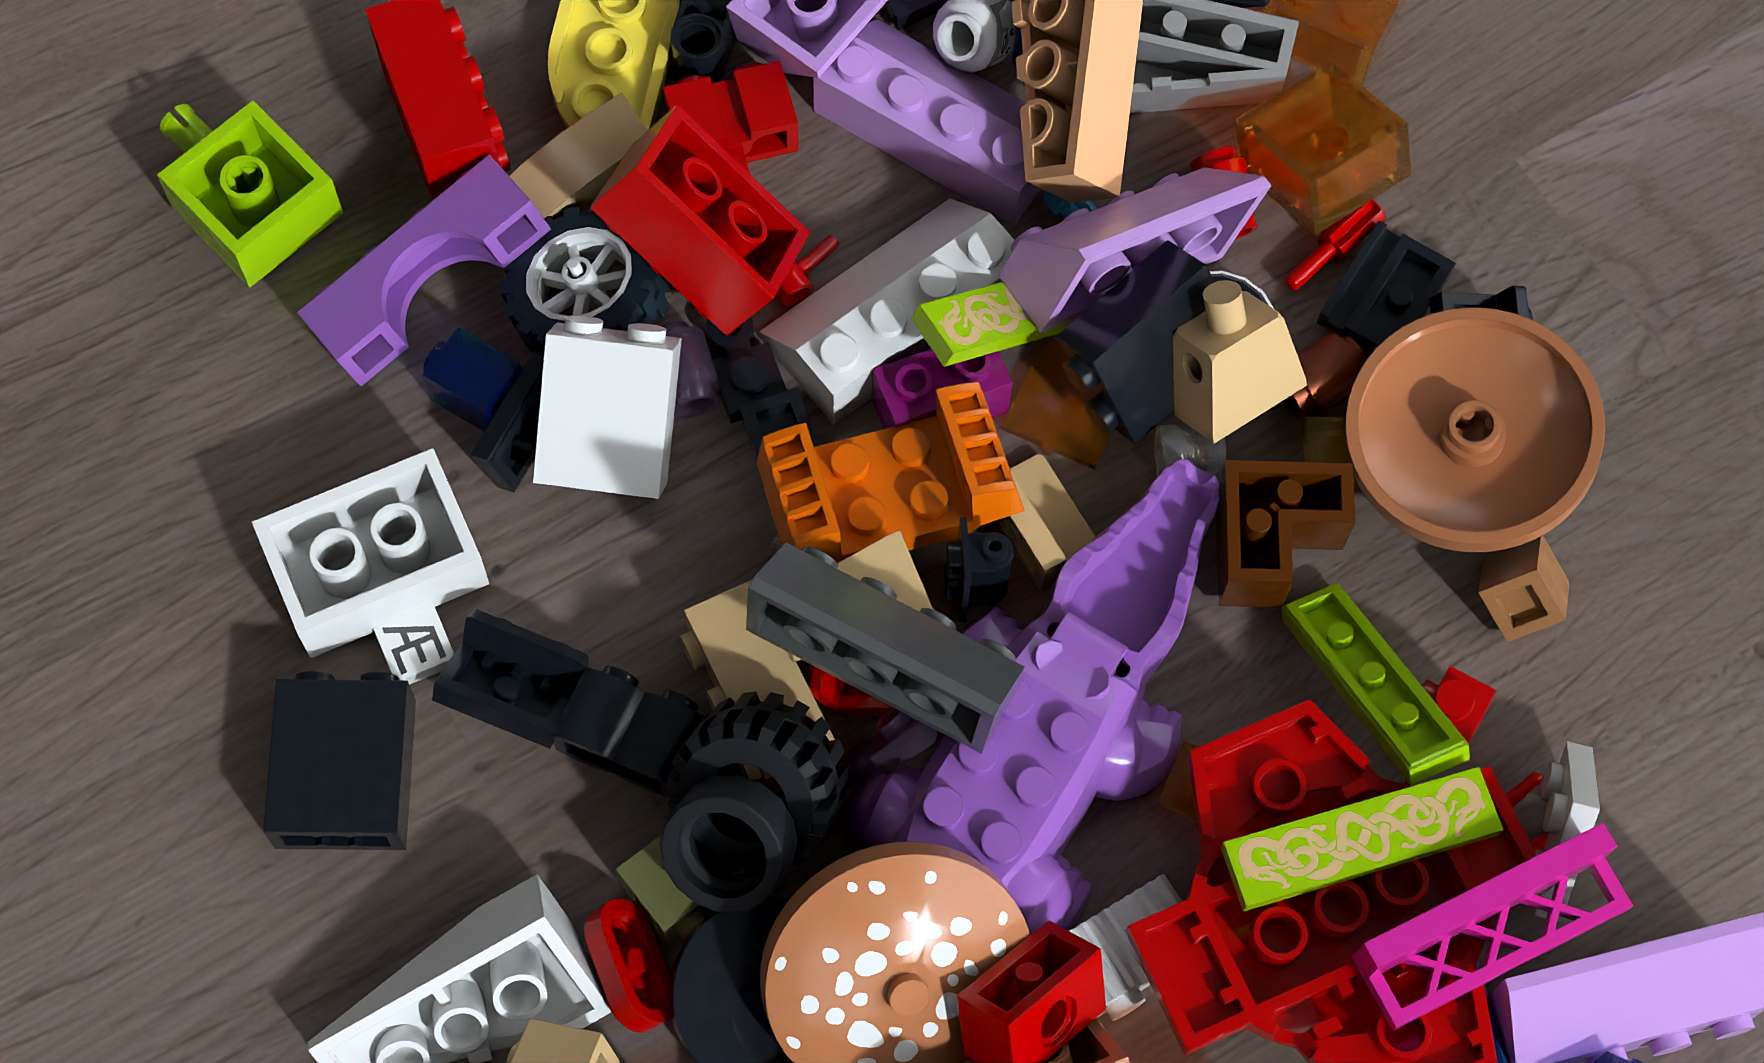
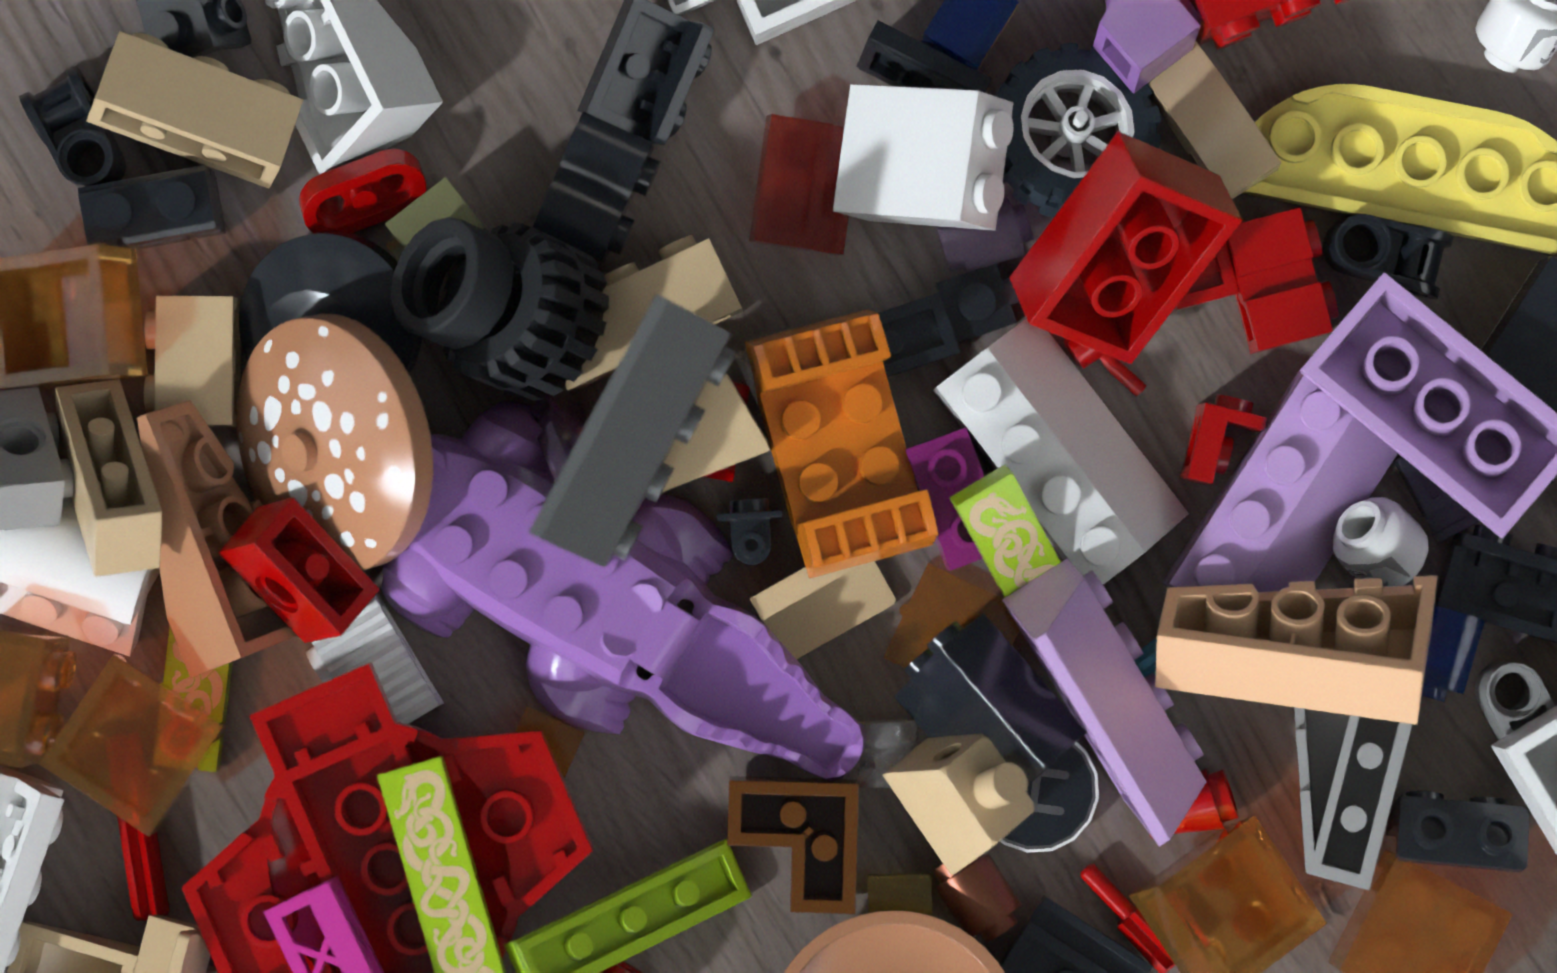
camera: 90 degrees right, 20 degrees up
(631, 536) = (799, 186): none -> clear red plate
(879, 175) = (1207, 446): none -> red bracket

